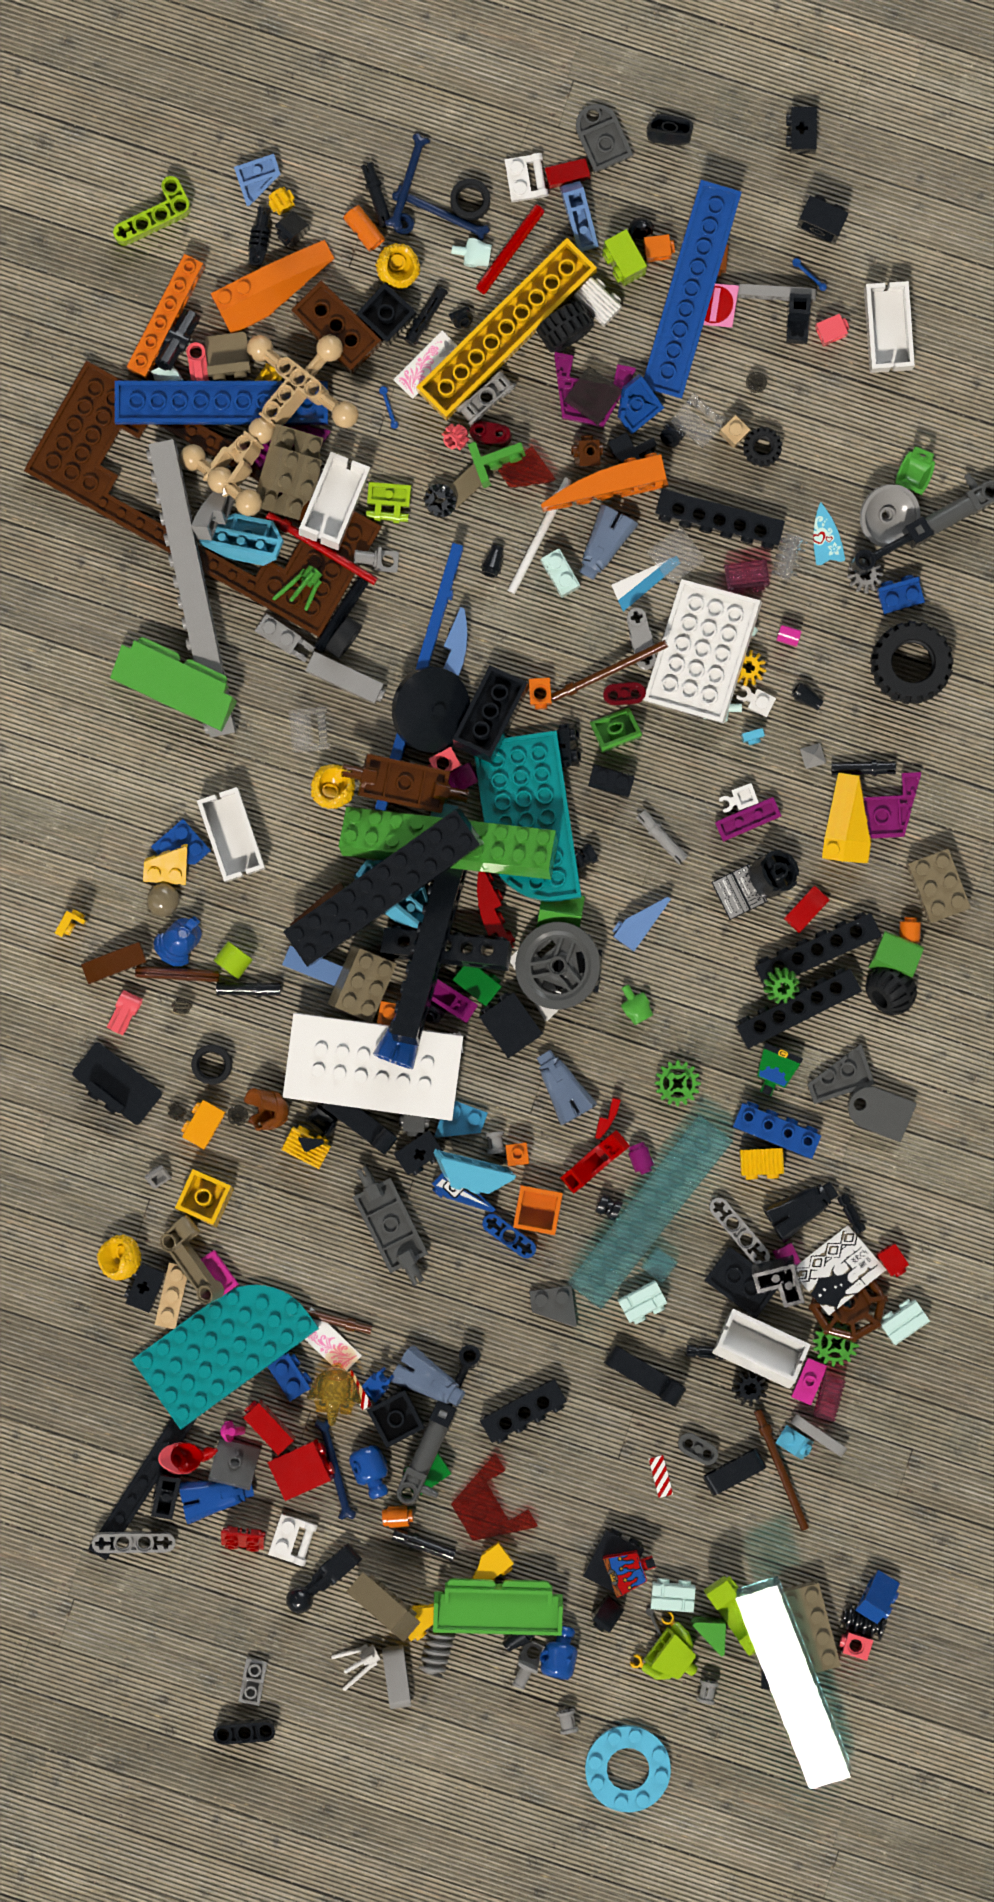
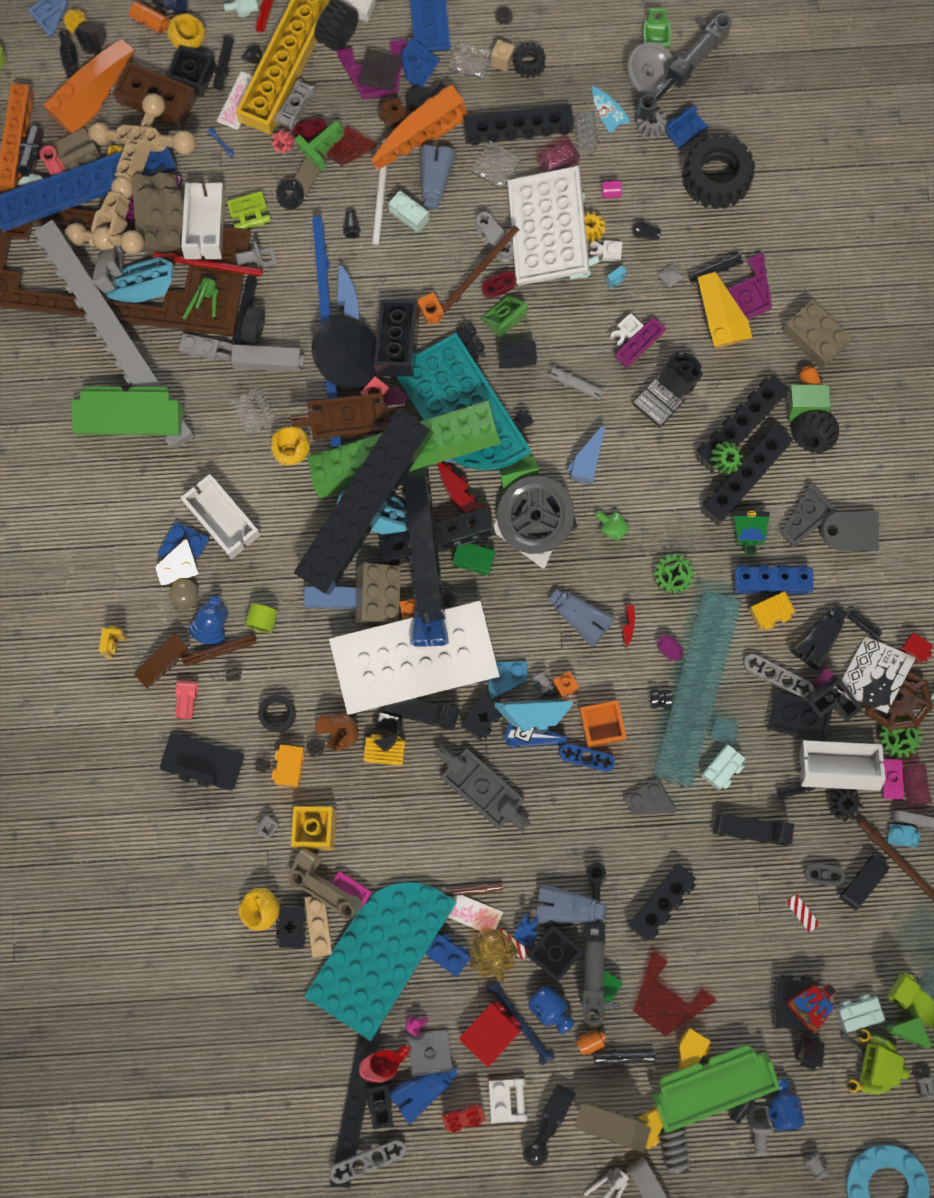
camera: 20 degrees left, 10 degrees down
(242, 988) = (284, 638): black pin -> none
(268, 1426) = (446, 1006): red brick -> none
(413, 1124) = (468, 694): dark grey brick -> none
(453, 1001) = (460, 580): magenta arch -> none
(510, 1024) = (515, 581): black brick -> none
(594, 1161) = (634, 663): red arch -> none
(635, 586) = (473, 202): sticker -> none
(671, 436) = (454, 78): black plate -> none
(806, 909) = (718, 394): red slope -> none

